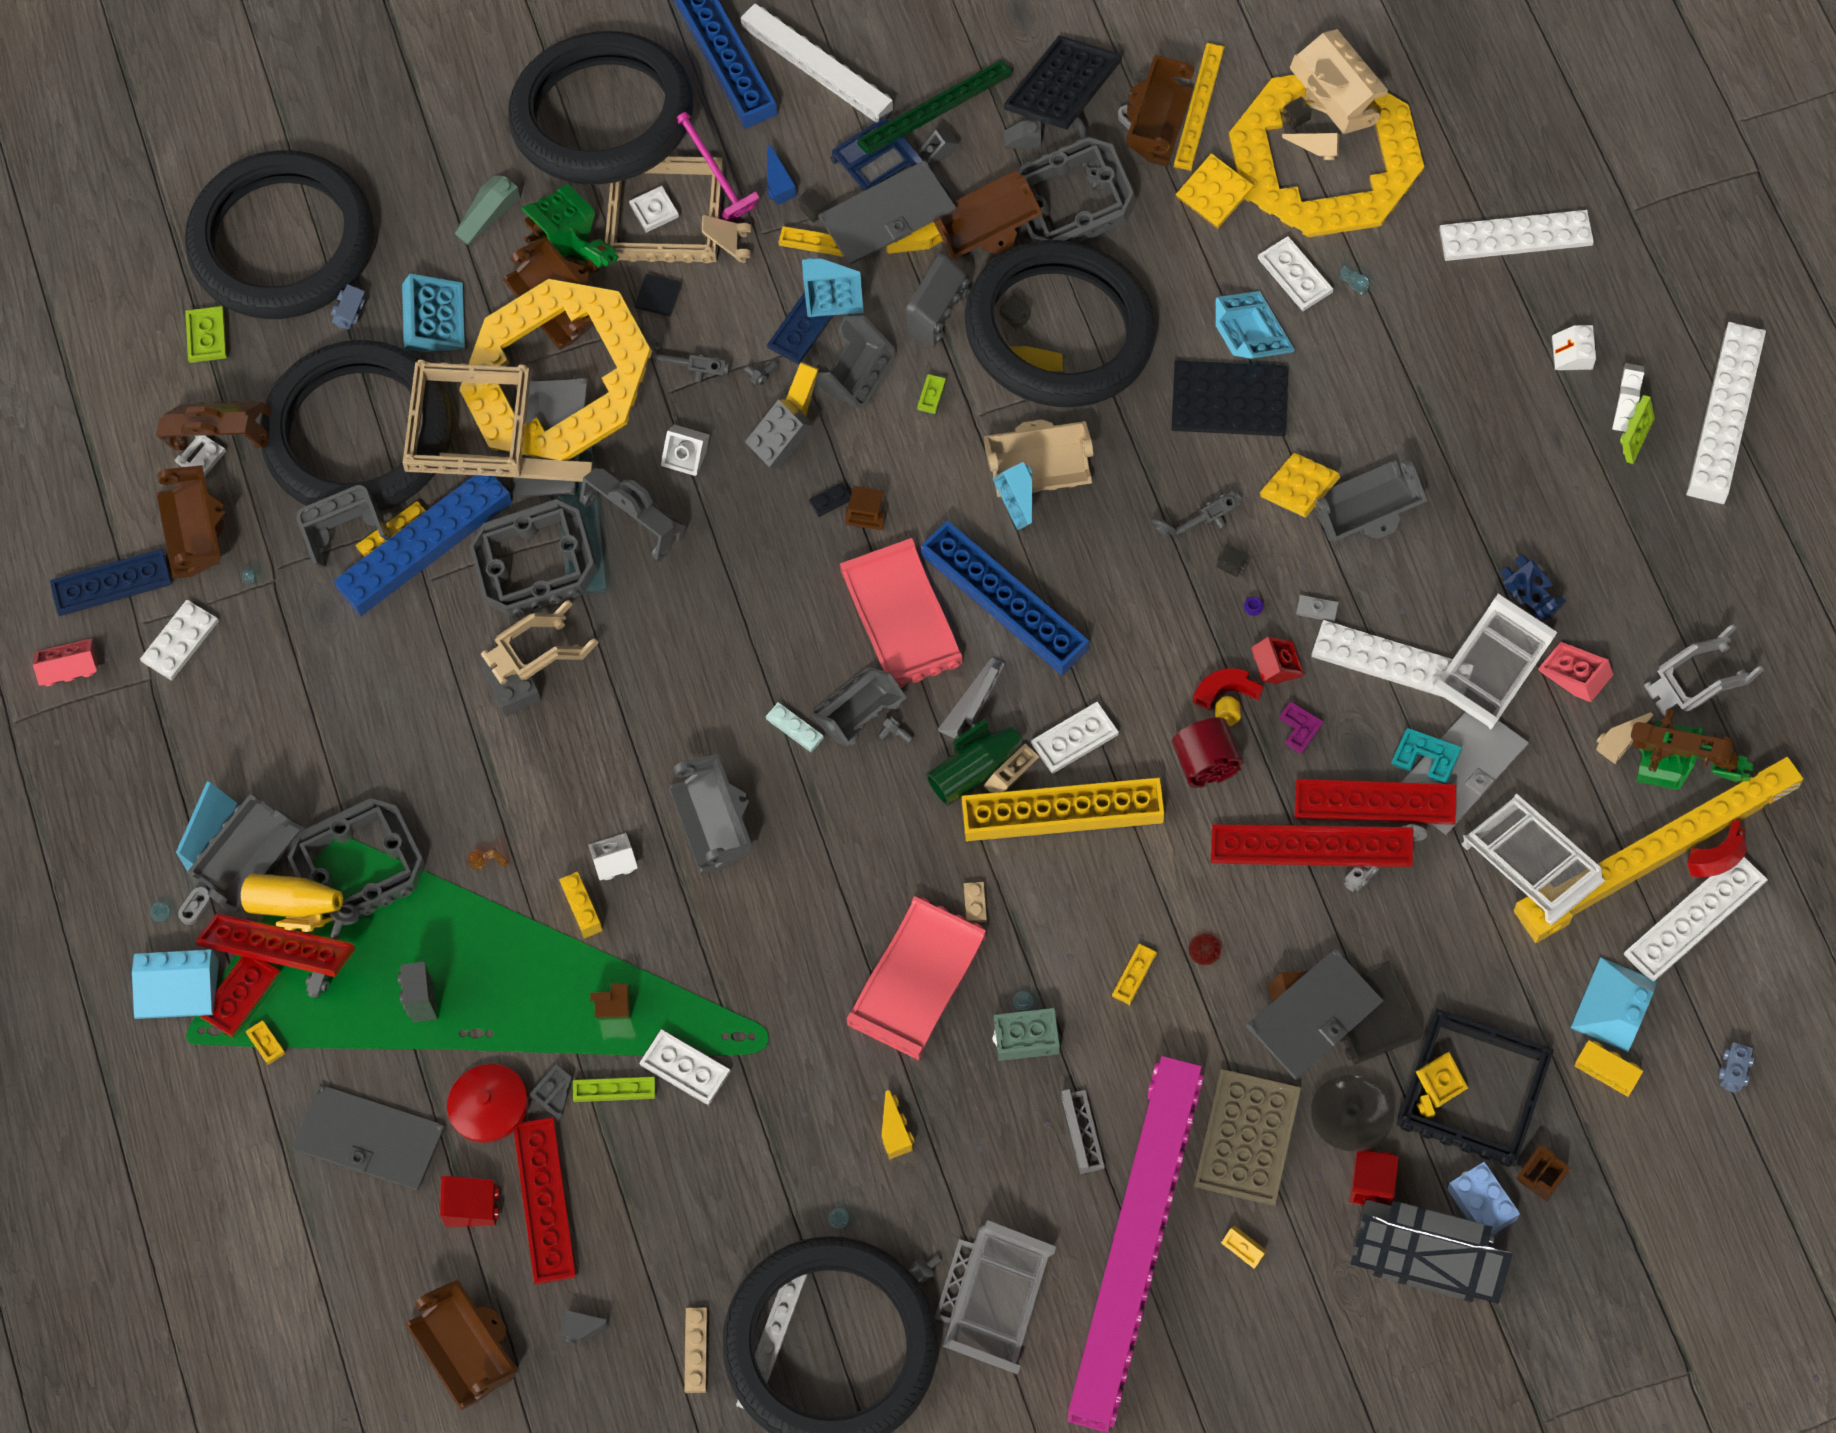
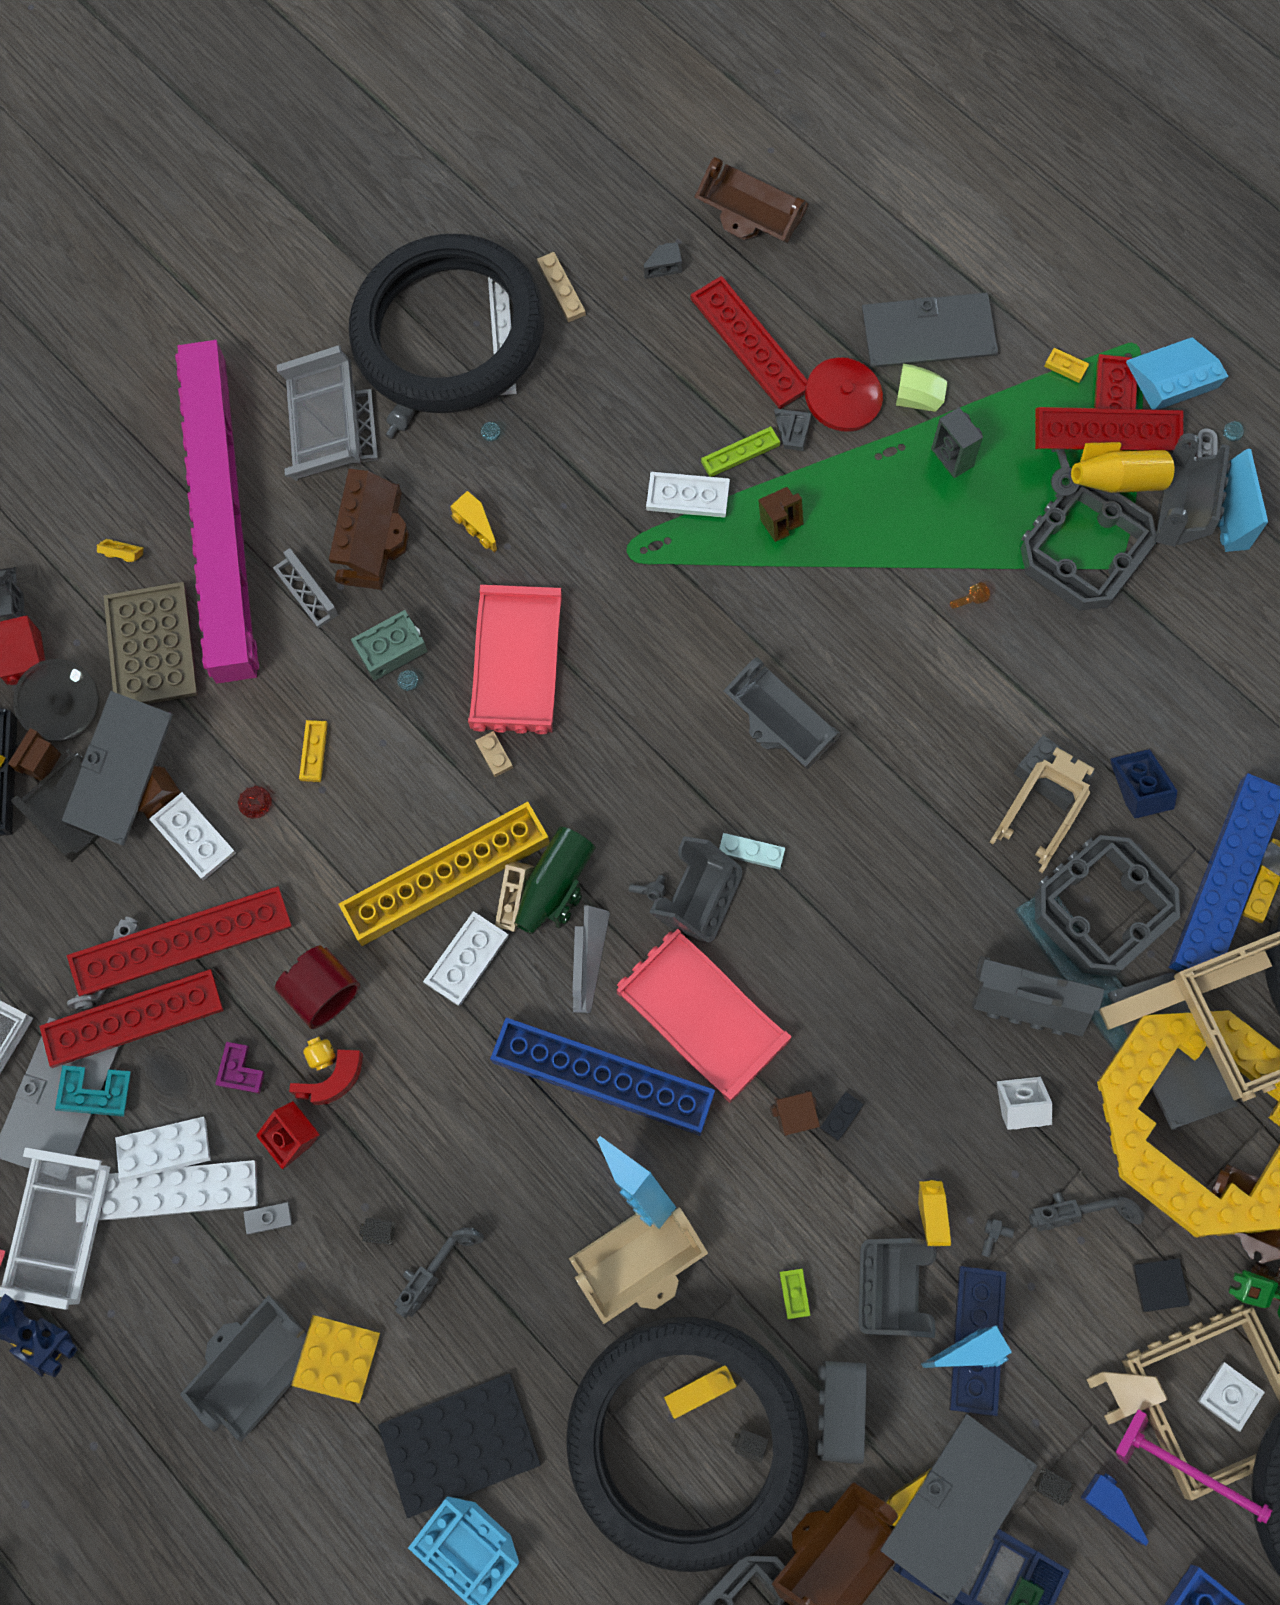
camera: 155 degrees right, 5 degrees up
(412, 1080) = (921, 389): none -> yellowish green slope
(441, 643) = (1144, 784): none -> dark blue slope
(468, 1202) = (813, 308): red slope -> none
(580, 905) = (860, 591): yellow brick -> none
(613, 857) = (857, 649): white slope -> none
(779, 433) = (931, 1157): brick -> none
(808, 241) = (1036, 1434): yellow plate -> none
(995, 1153) = (368, 530): none -> reddish brown piece
(1253, 606) = (337, 1189): dark purple plate -> none
(1270, 938) = (192, 836): none -> white plate
(1384, 690) = (162, 1149): none -> white plate
(1390, 1067) = (35, 756): none -> reddish brown plate

